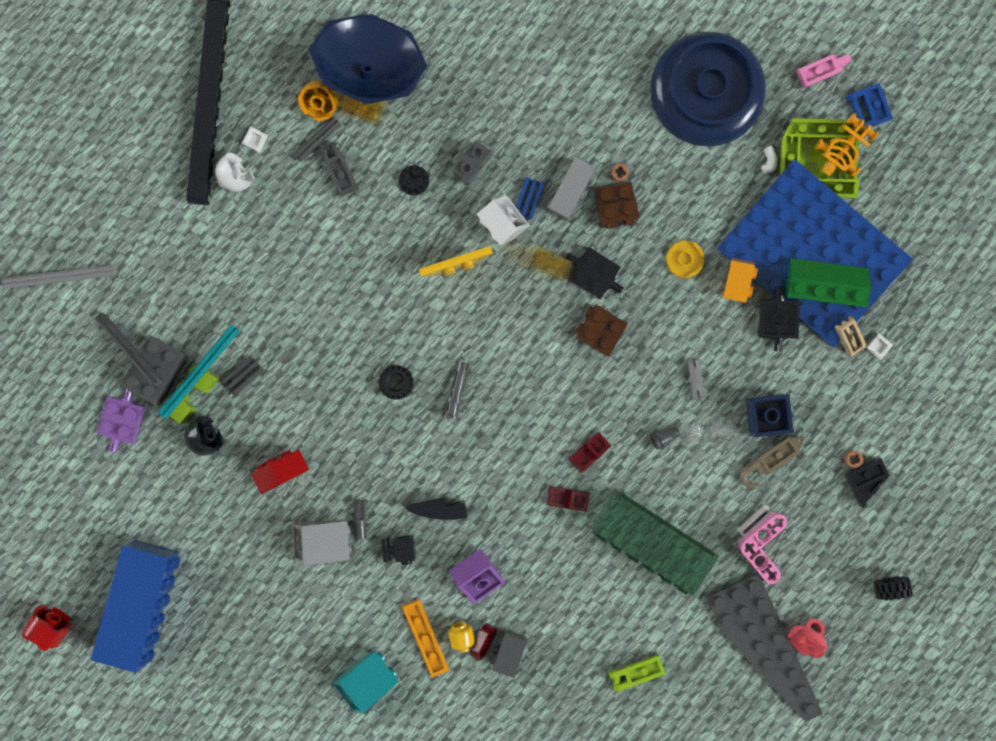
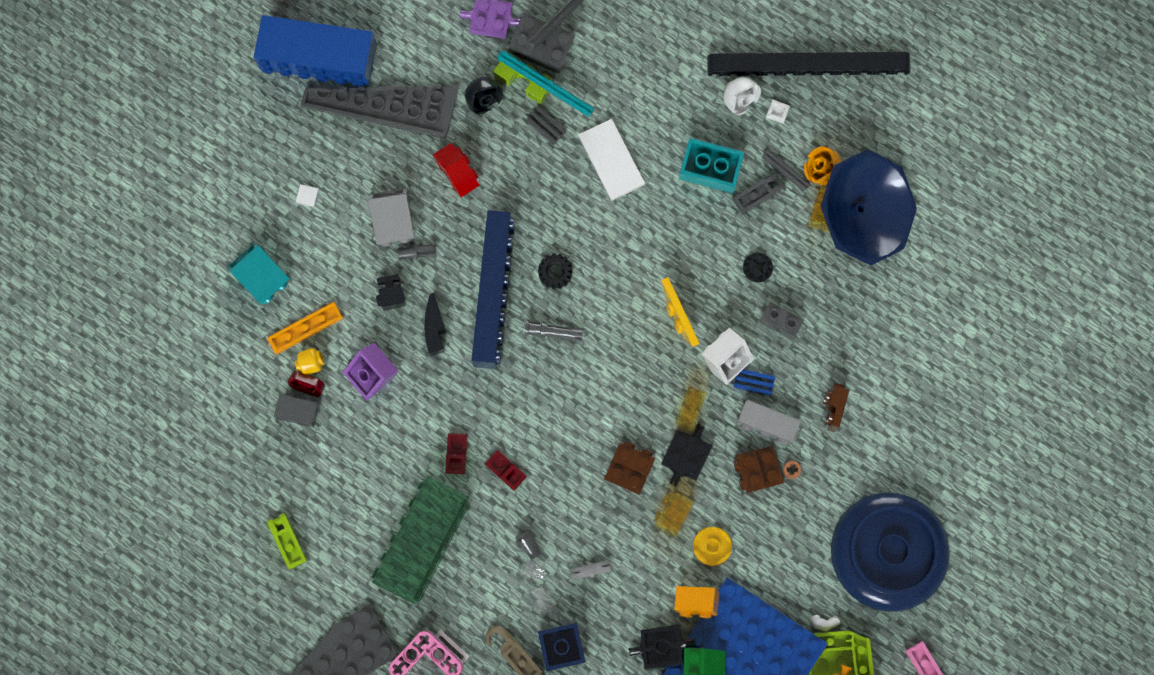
camera: 85 degrees right, 10 degrees down
(209, 509) = (412, 109): none -> dark grey wing
(286, 313) = (611, 159): none -> white tile
(289, 624) = (307, 195): none -> white tile
(304, 212) = (711, 165): none -> teal brick
(407, 447) = (492, 289): none -> dark blue brick
(559, 118) = (835, 403): none -> reddish brown plate
(651, 292) = (674, 513): none -> clear yellow brick

